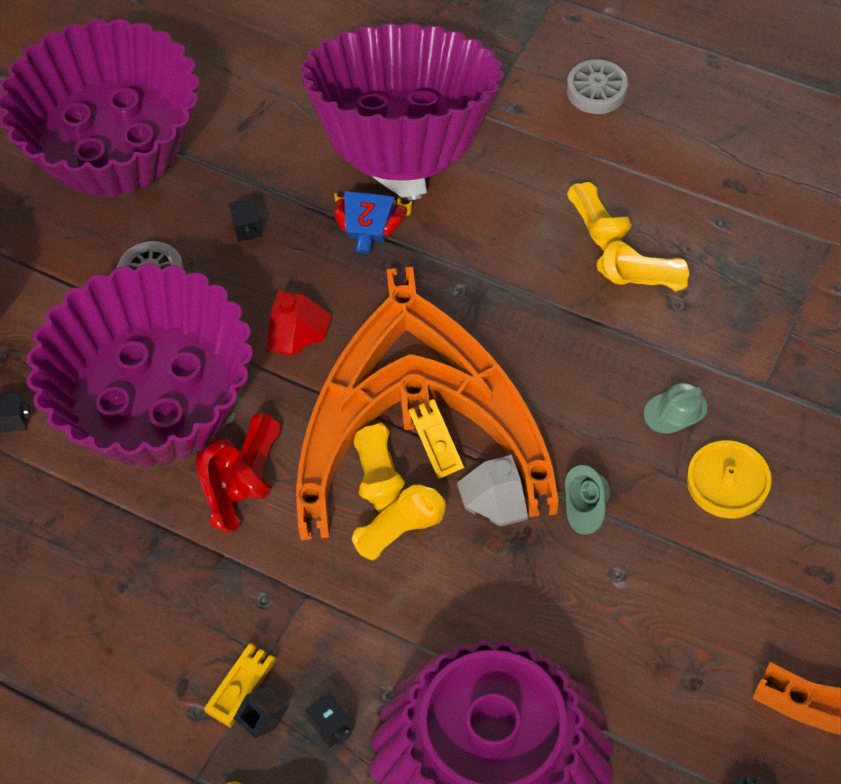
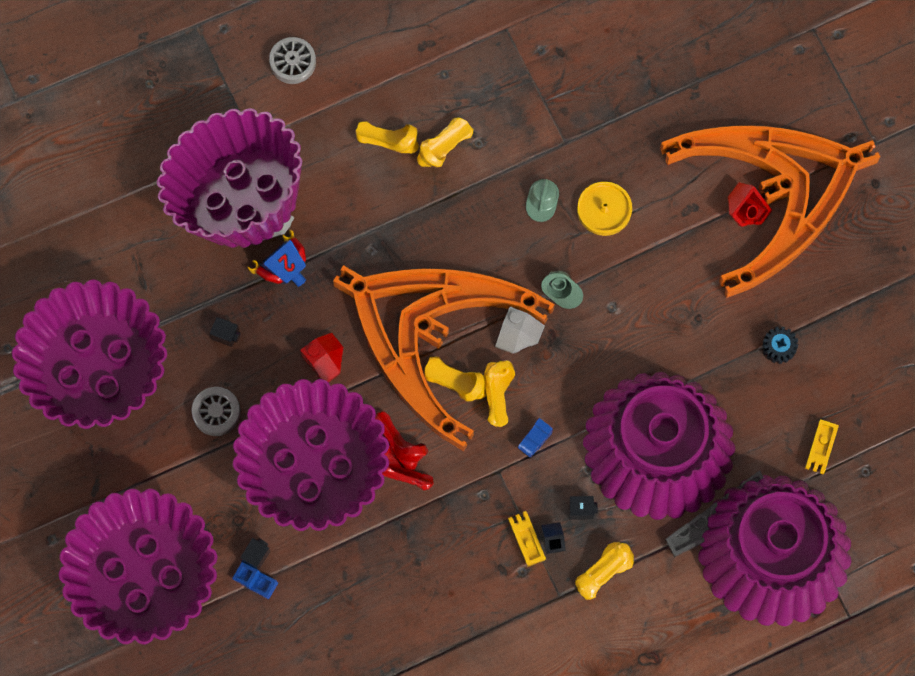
camera: 55 degrees left, 15 degrees up
(376, 603) = (535, 438): none -> blue leg
(436, 440) = (466, 337): yellow hinge -> none

